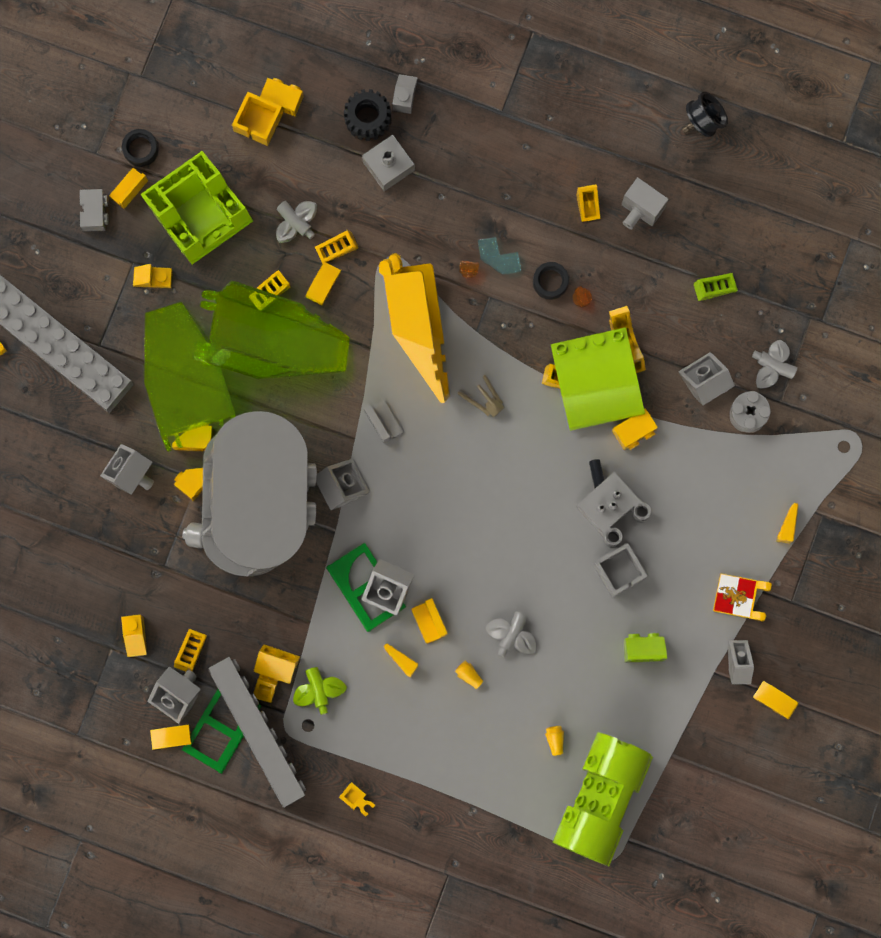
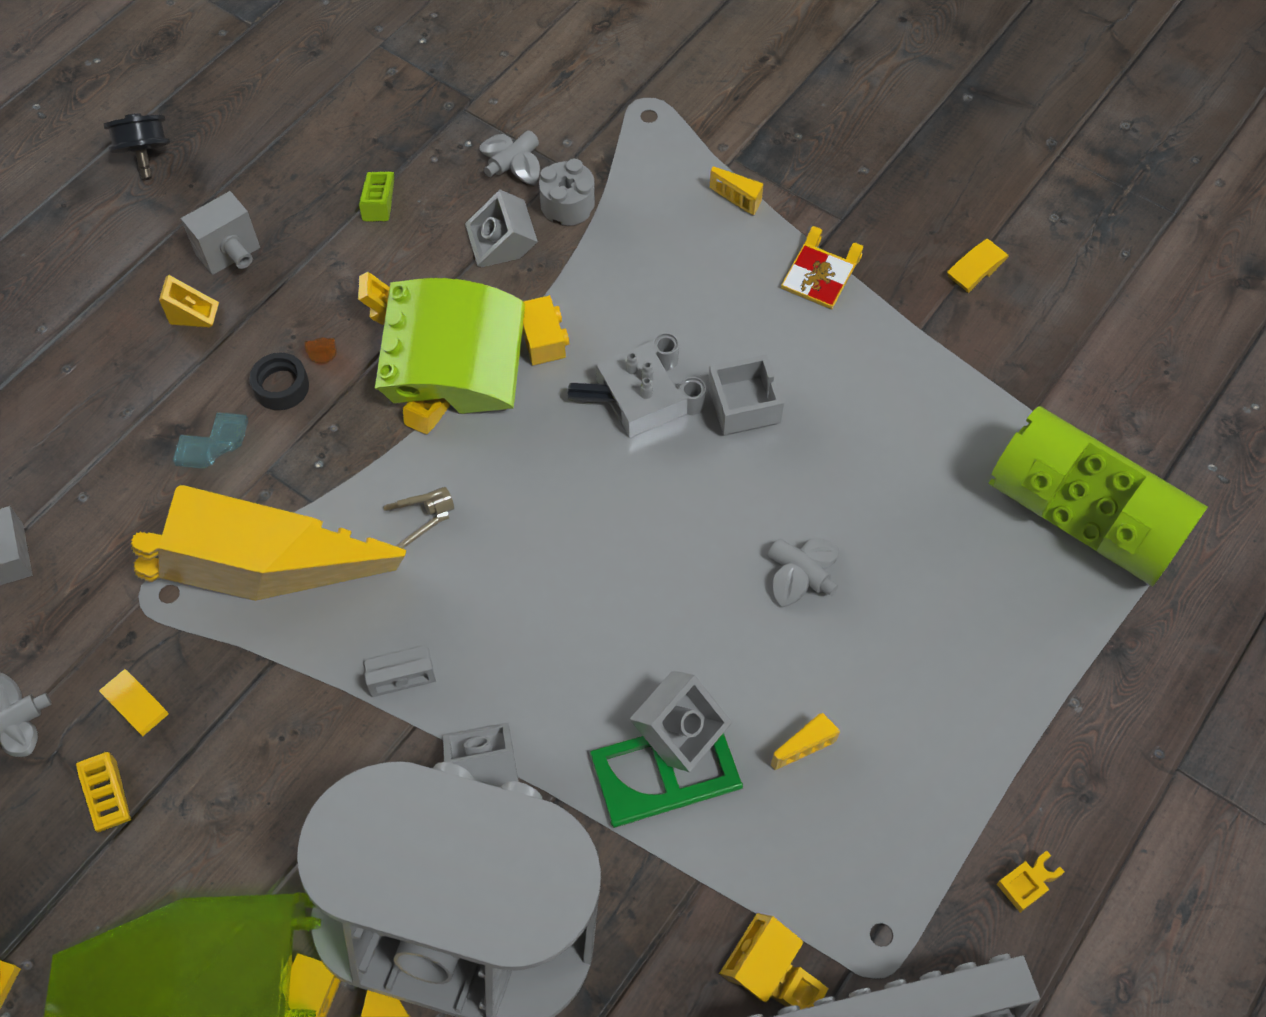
camera: 75 degrees left, 20 degrees down
(268, 335) = (172, 810): clear neon green windscreen -> none
(318, 690) = (826, 897): lime plant -> none
(346, 249) = (71, 644): yellow slope -> none
(429, 621) = (750, 682): yellow panel -> none
(468, 269) = (211, 480): clear orange plate -> none
(468, 674) = (850, 647): yellow cone -> none
(555, 739) = (983, 549): yellow cone -> none
(645, 648) = (871, 392): lime slope -> none
(740, 662) = (917, 288): light grey slope -> none

